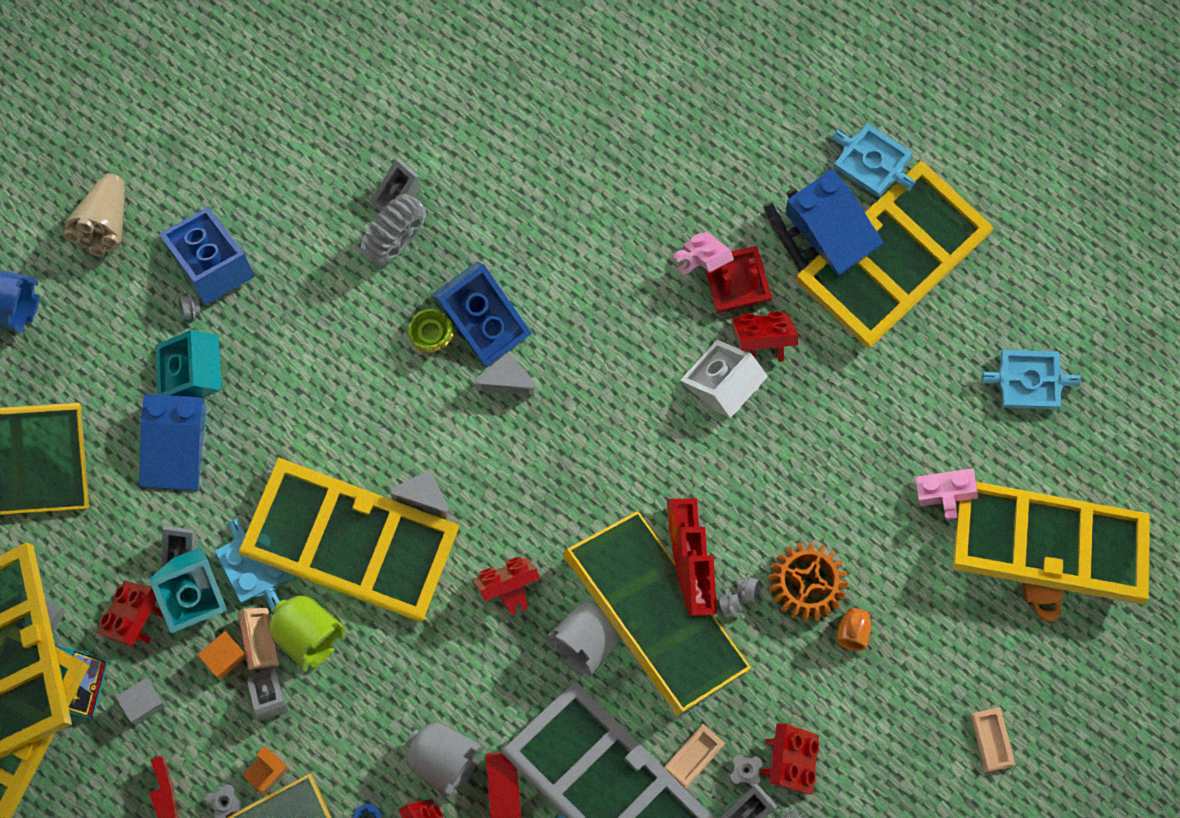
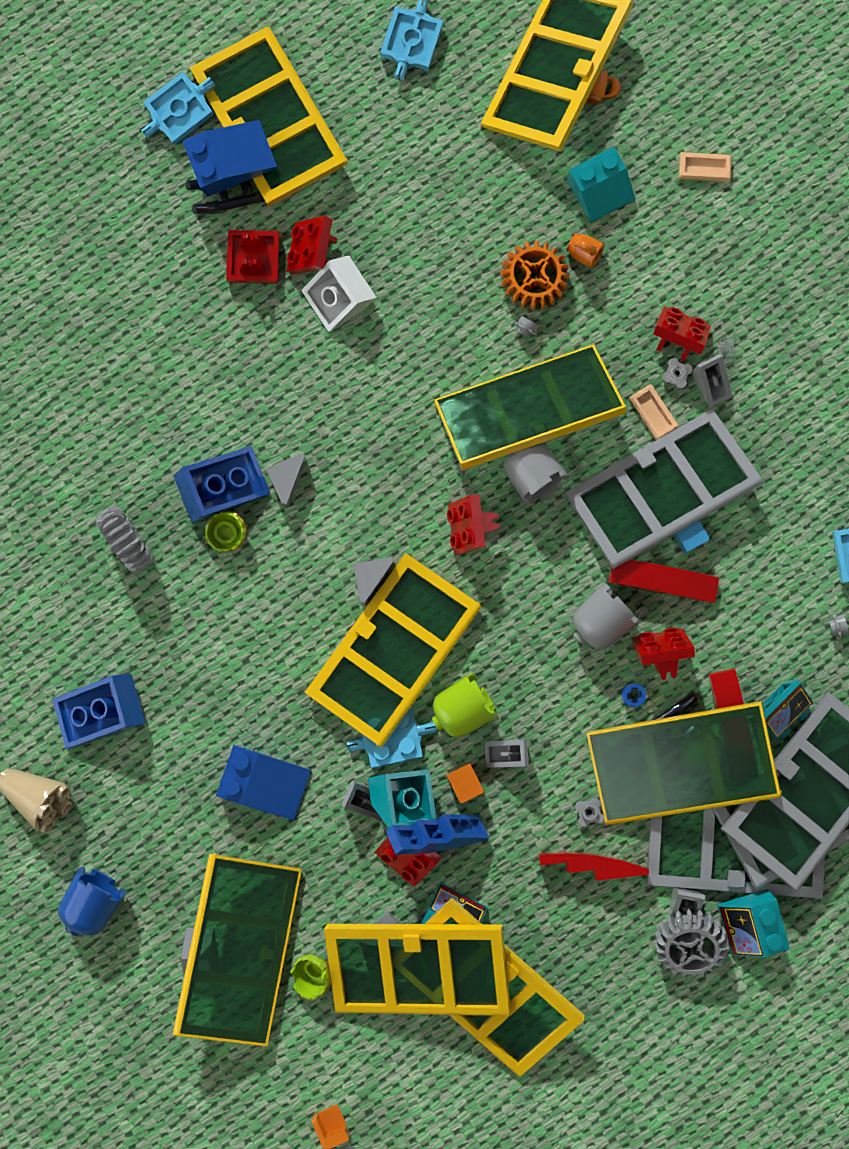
camera: 65 degrees left, 10 degrees up
(140, 701) = (486, 862): light grey panel -> none
(154, 632) = (437, 835): none -> blue slope
(188, 308) = (143, 738): light grey plate -> none
(189, 365) = (198, 751): teal slope -> none
(257, 640) = (454, 749): light nougat tile -> none
(265, 771) = (572, 770): orange panel -> none
(397, 181) = (84, 528): light grey slope -> none
(692, 563) = (493, 366): red slope -> none
(704, 251) = (222, 274): bright pink plate -> none
(730, 604) = (536, 344): light grey plate -> none
(932, 627) = (601, 184): none -> teal slope
(947, 489) = (488, 136): bright pink plate -> none

